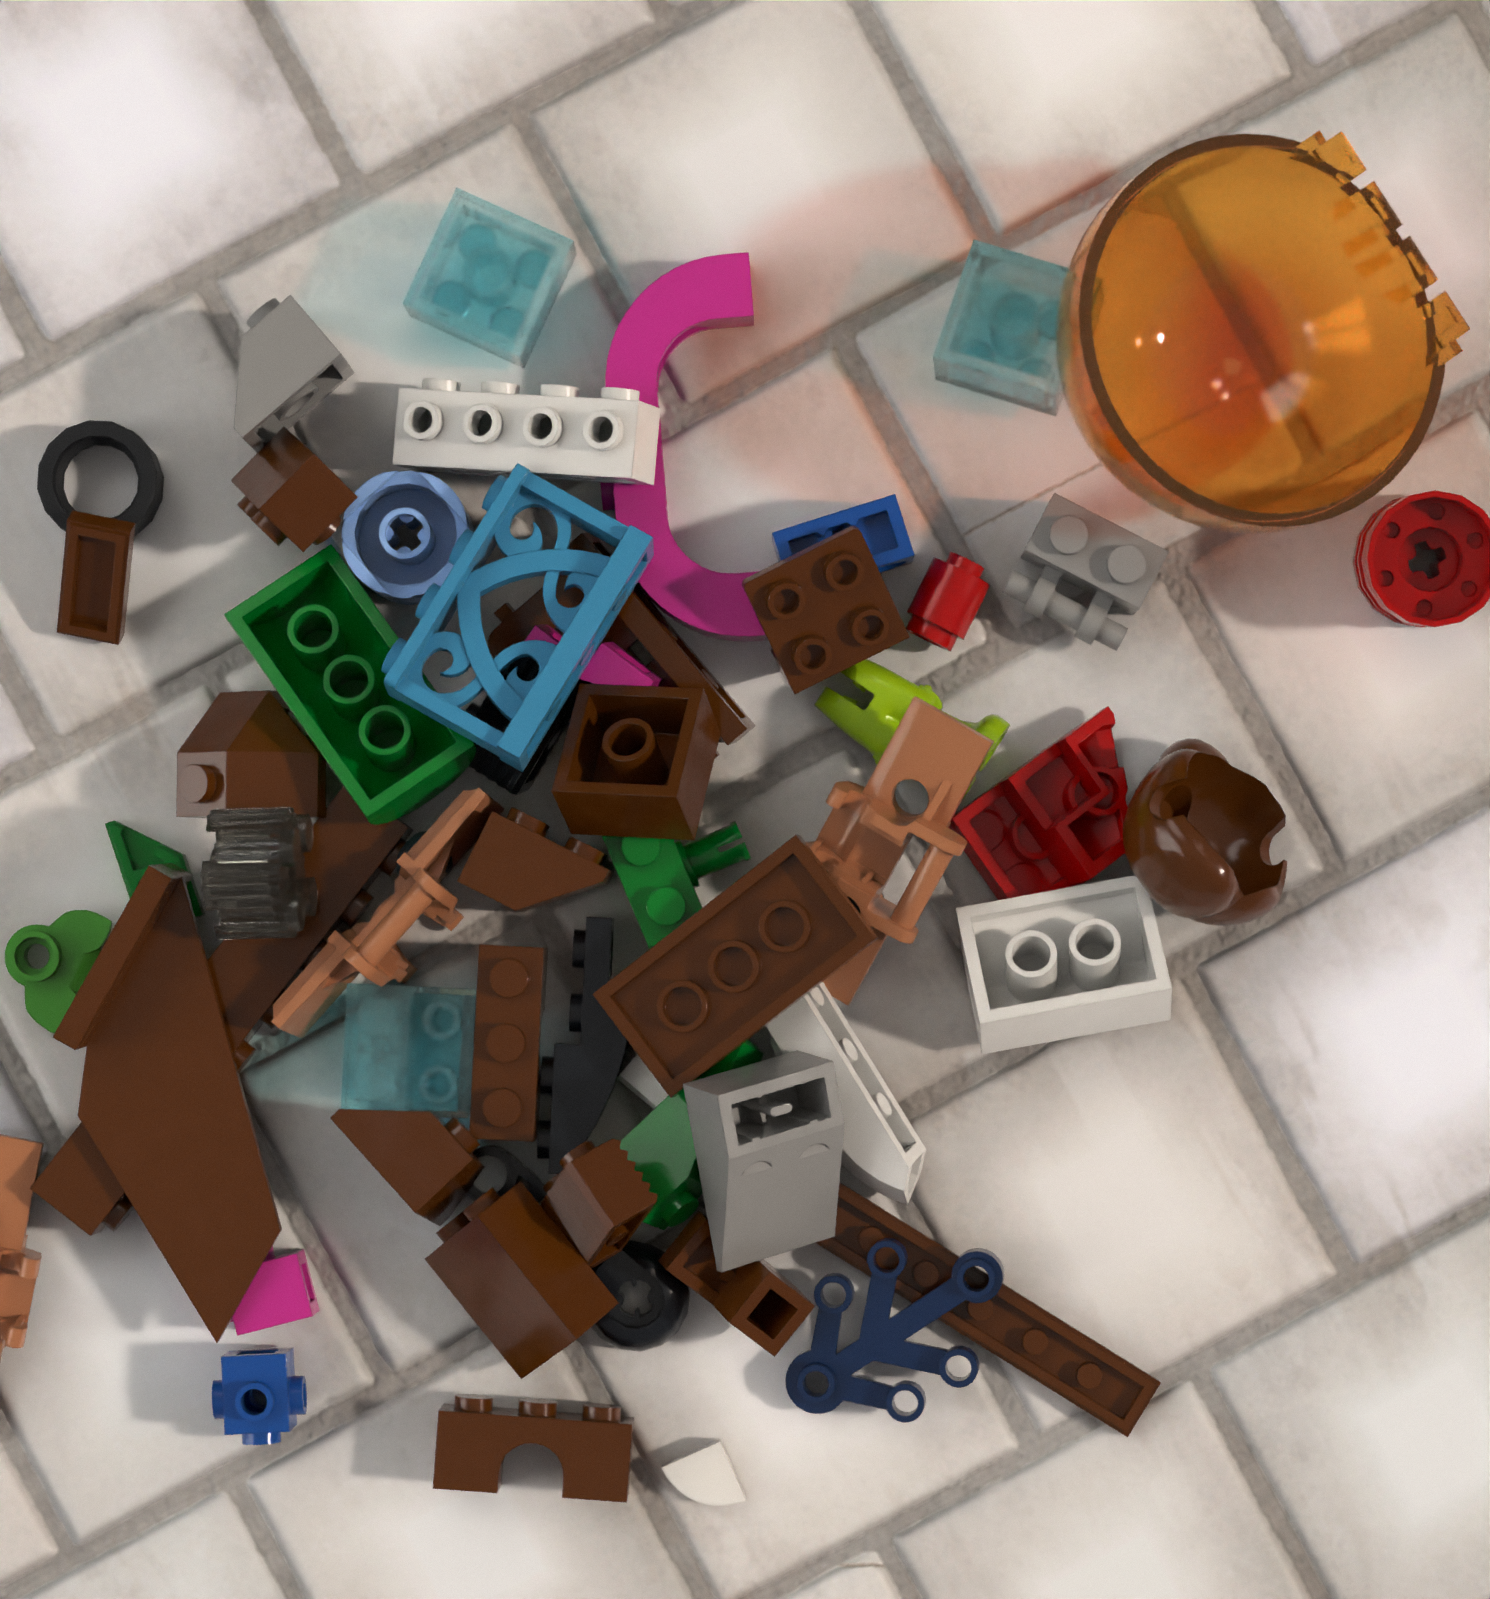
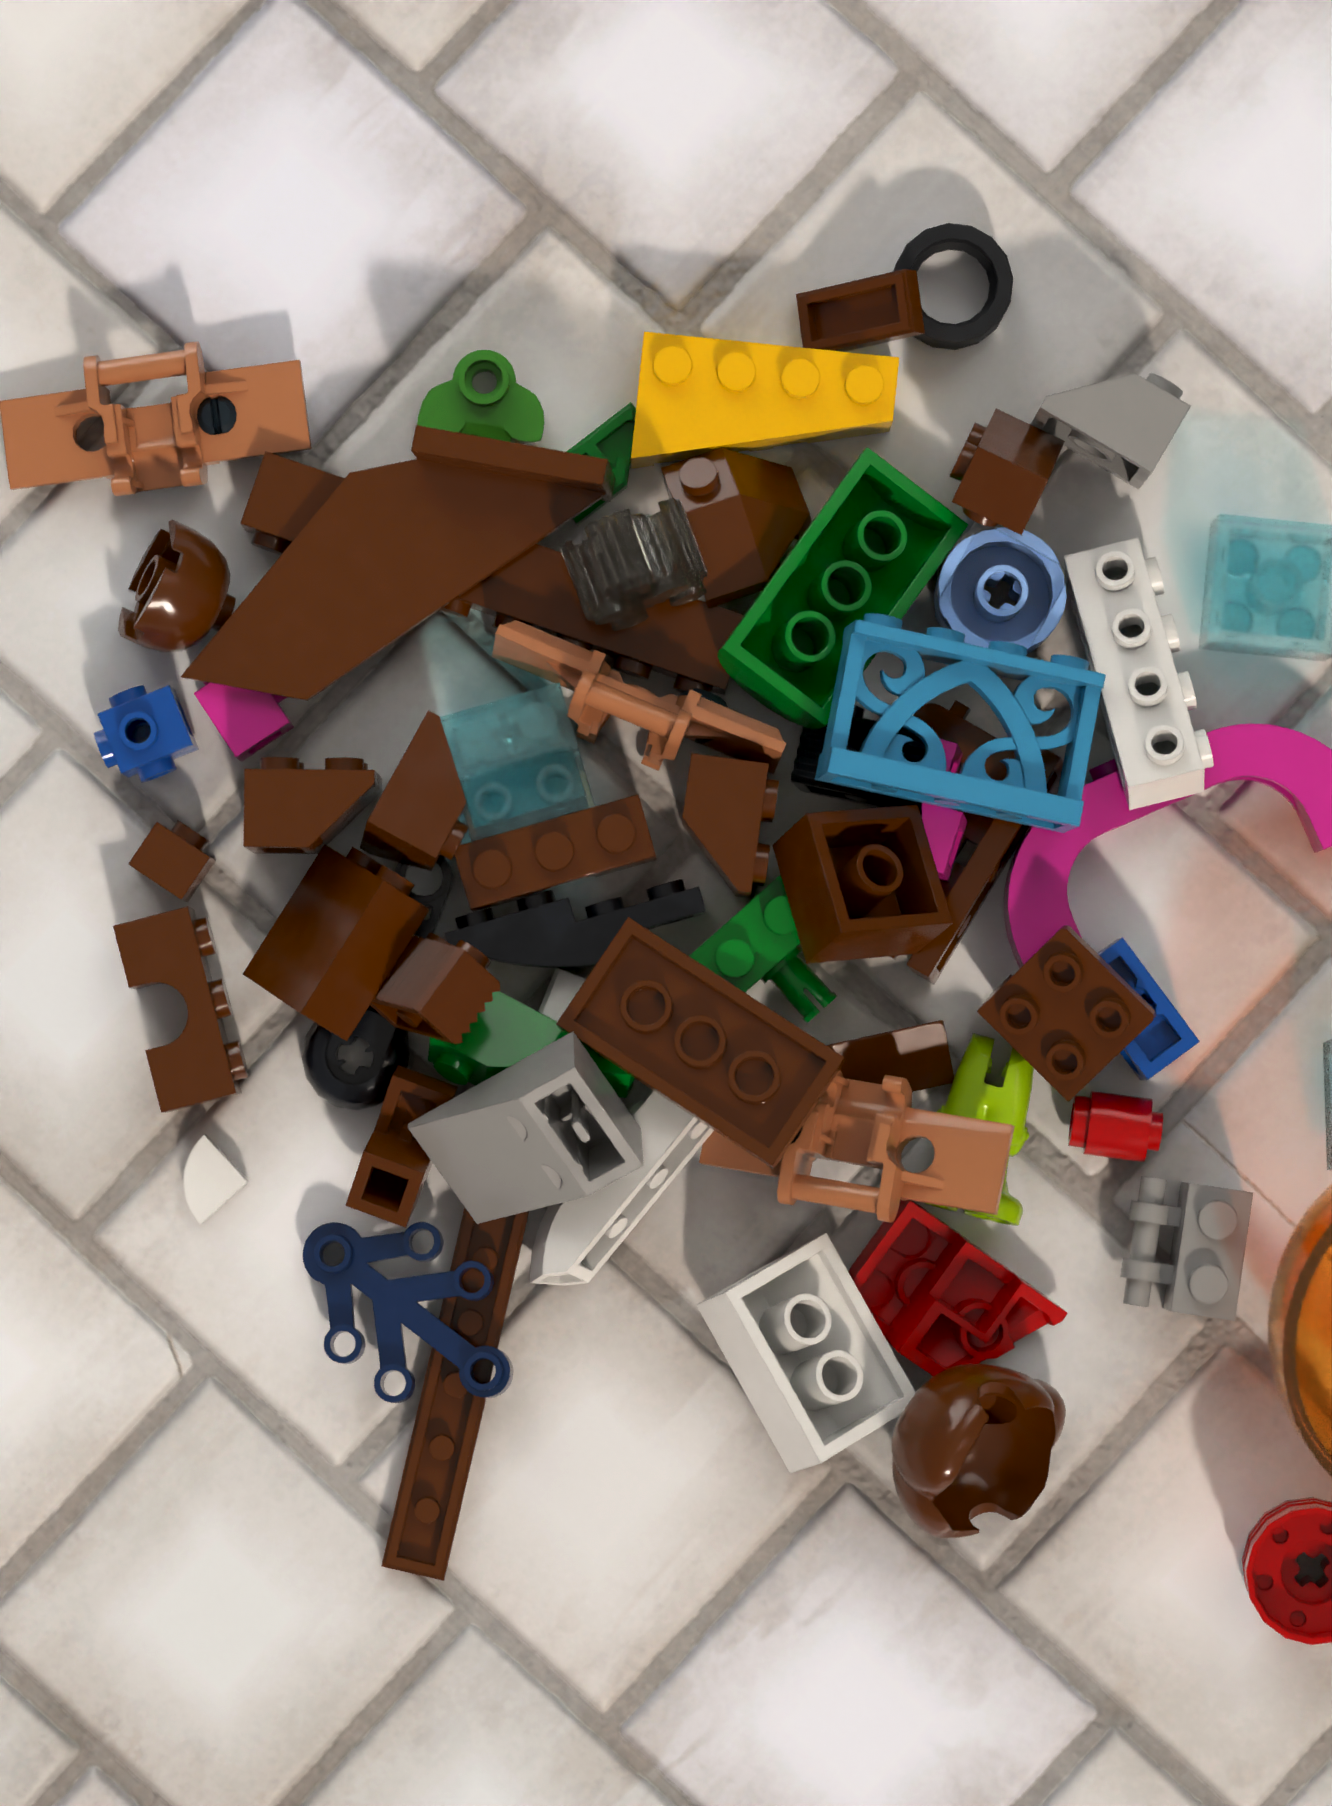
camera: 60 degrees right, 0 degrees up
(135, 1317) = (178, 591): none -> reddish brown cylinder
(139, 705) = (753, 396): none -> yellow wedge
(383, 1269) = (303, 808): none -> reddish brown slope
(389, 1407) = (174, 859): none -> reddish brown plate
(812, 770) = (911, 1053): none -> reddish brown slope

